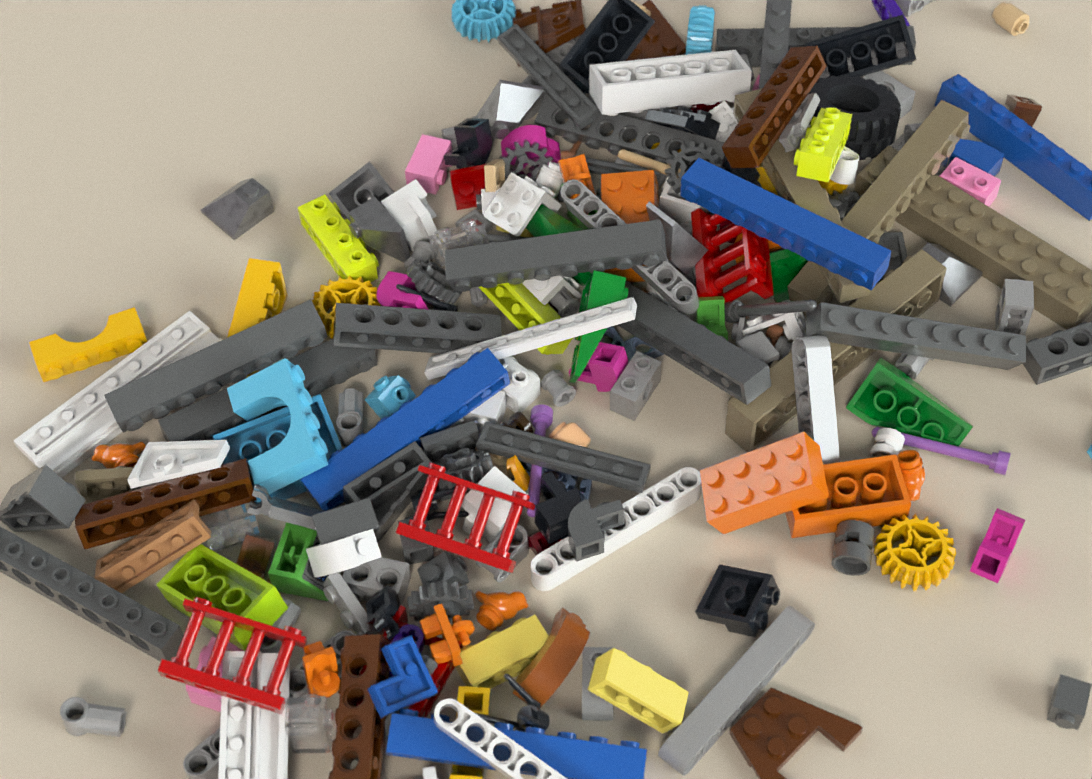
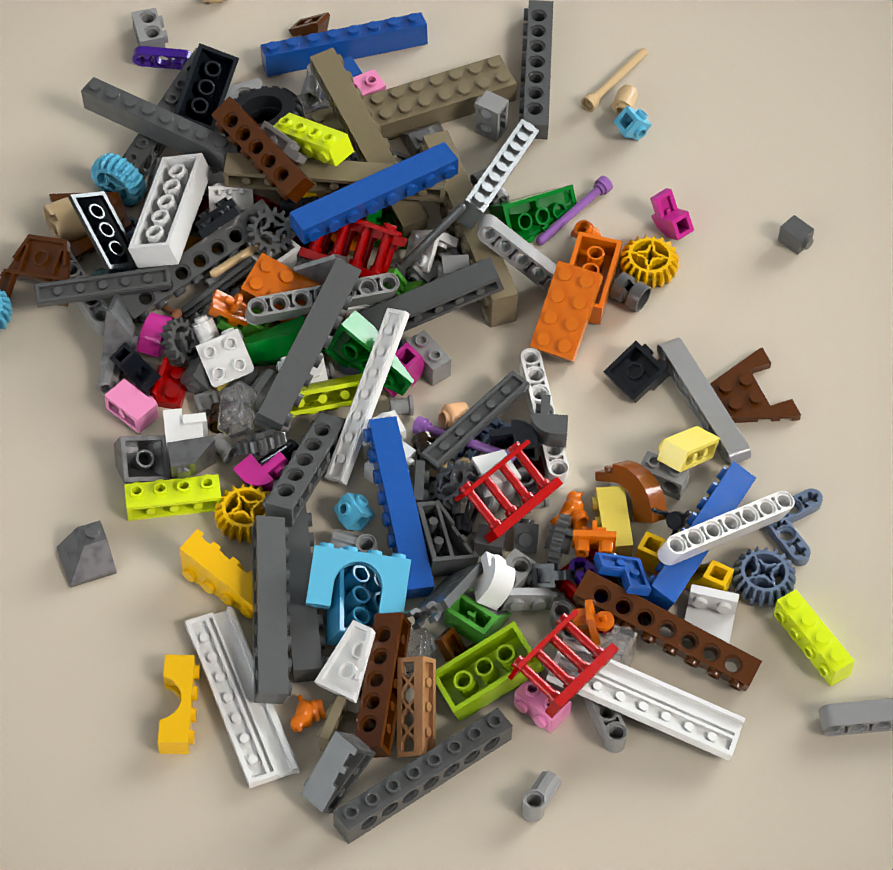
camera: 70 degrees left, 0 degrees up
(345, 521) = (477, 563): dark grey slope -> none
(494, 175) = (191, 358): tan tile -> none
(521, 476) = (470, 452): light orange tile -> none
(887, 442) = (559, 239): white wheel -> none

